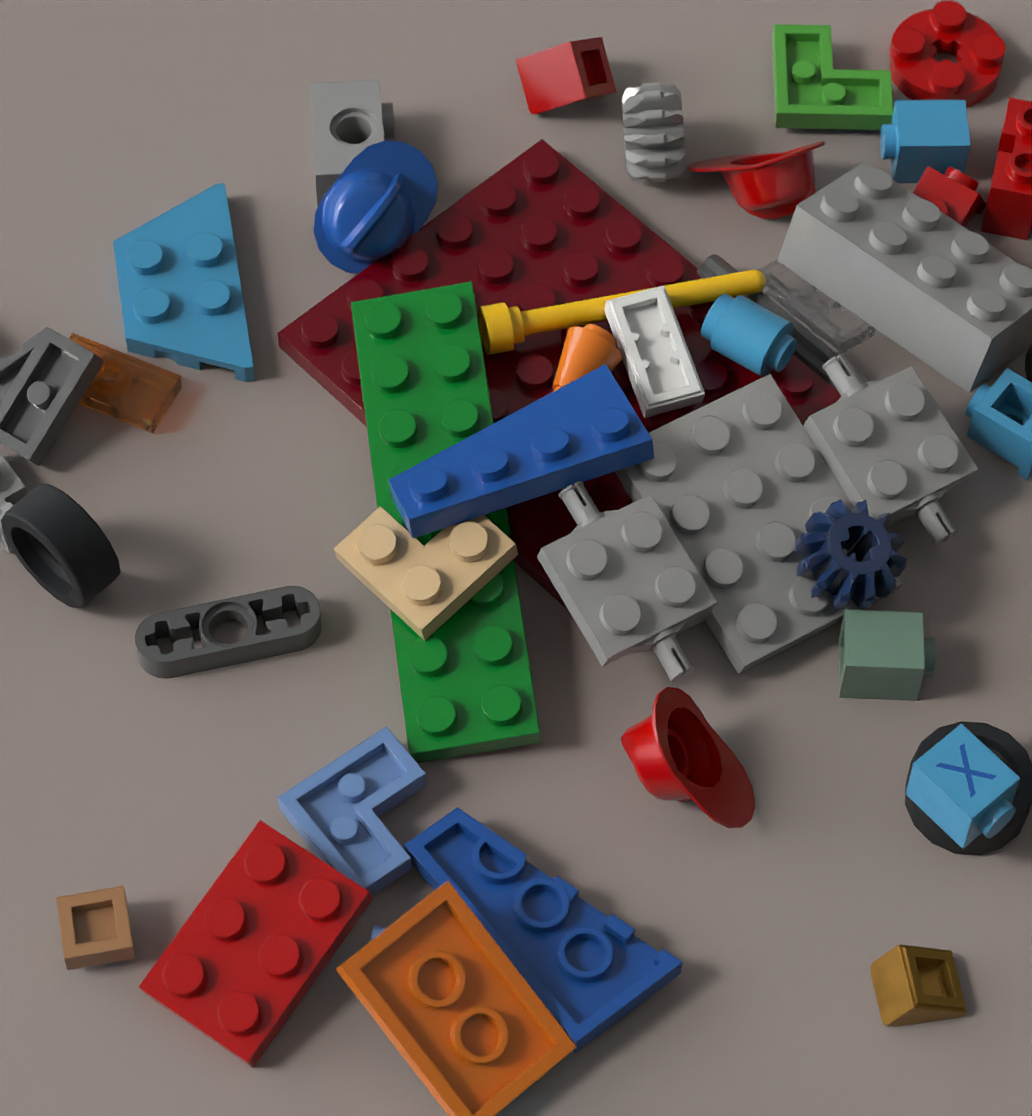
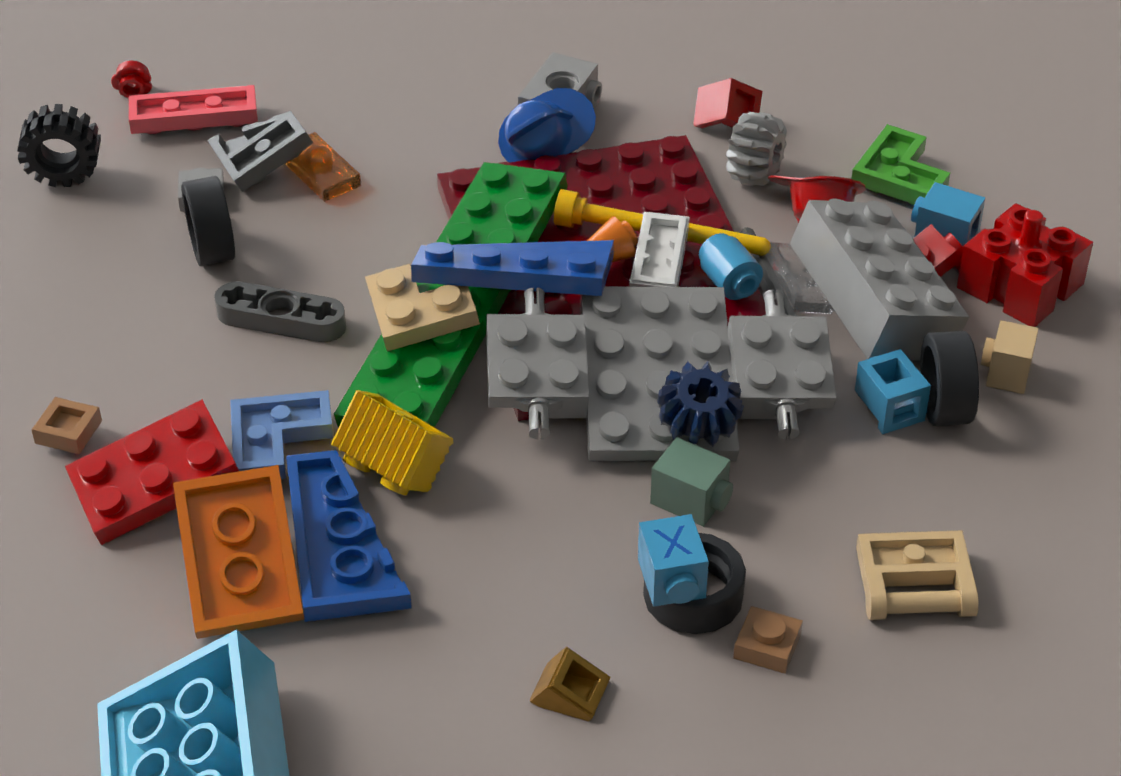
camera: 30 degrees right, 15 degrees down
(185, 287) = (404, 136): dark azure wing -> none
(519, 769) = (391, 442): none -> yellow brick
(688, 761) = (508, 483): red piece -> none
(949, 31) = (987, 173): red plate -> none

